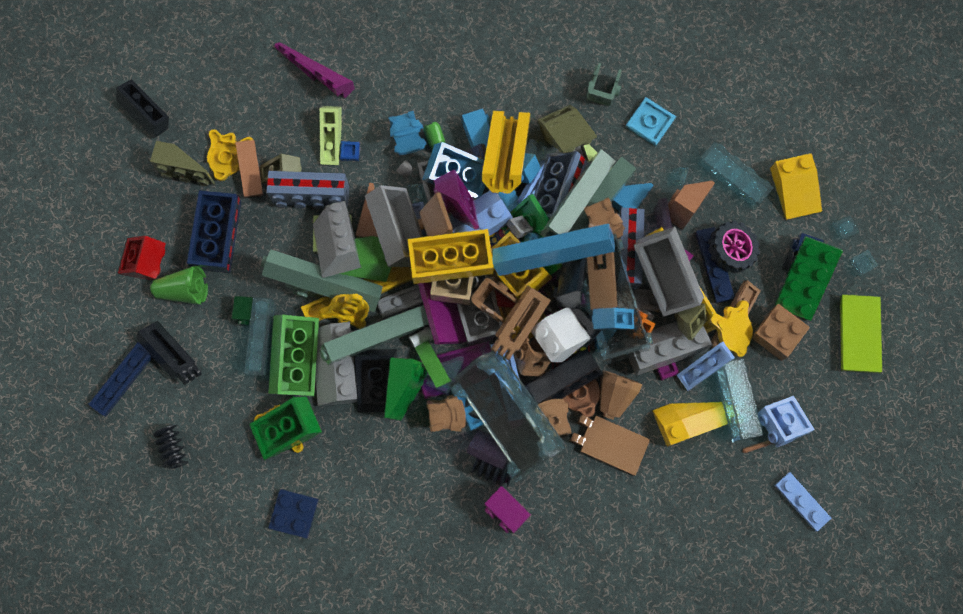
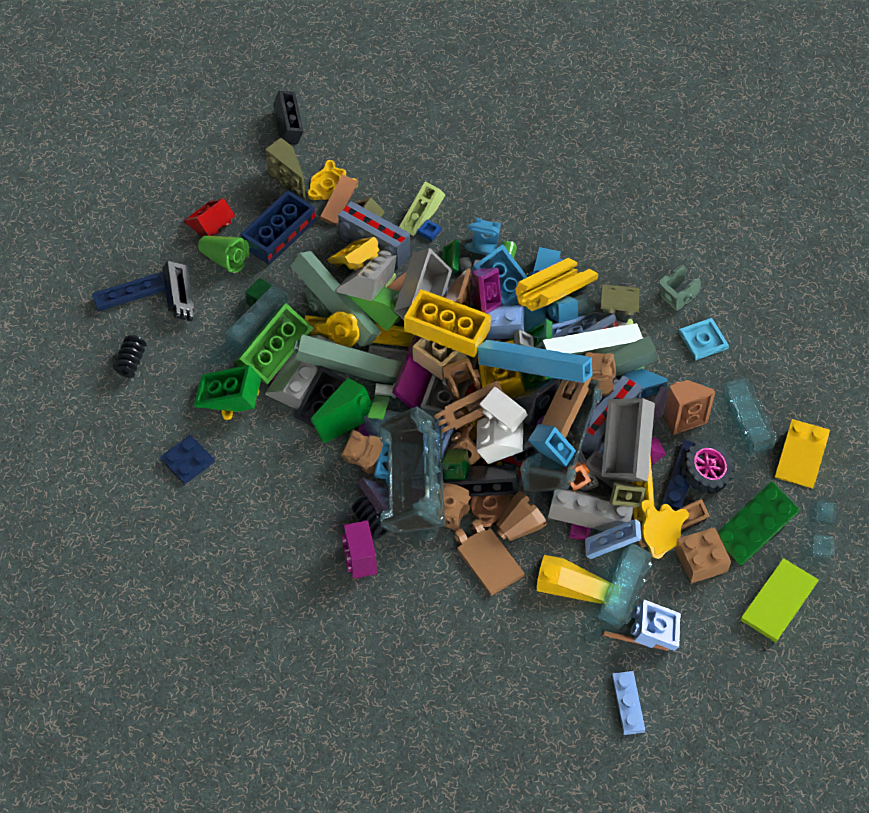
camera: 35 degrees right, 20 degrees down
(309, 223) = (356, 253): none -> yellow slope
(333, 81) = (444, 161): magenta wedge -> none
(389, 169) = (451, 255): none -> green tile
(537, 381) = (456, 464): none -> dark green brick
(555, 314) = (503, 410): none -> white brick

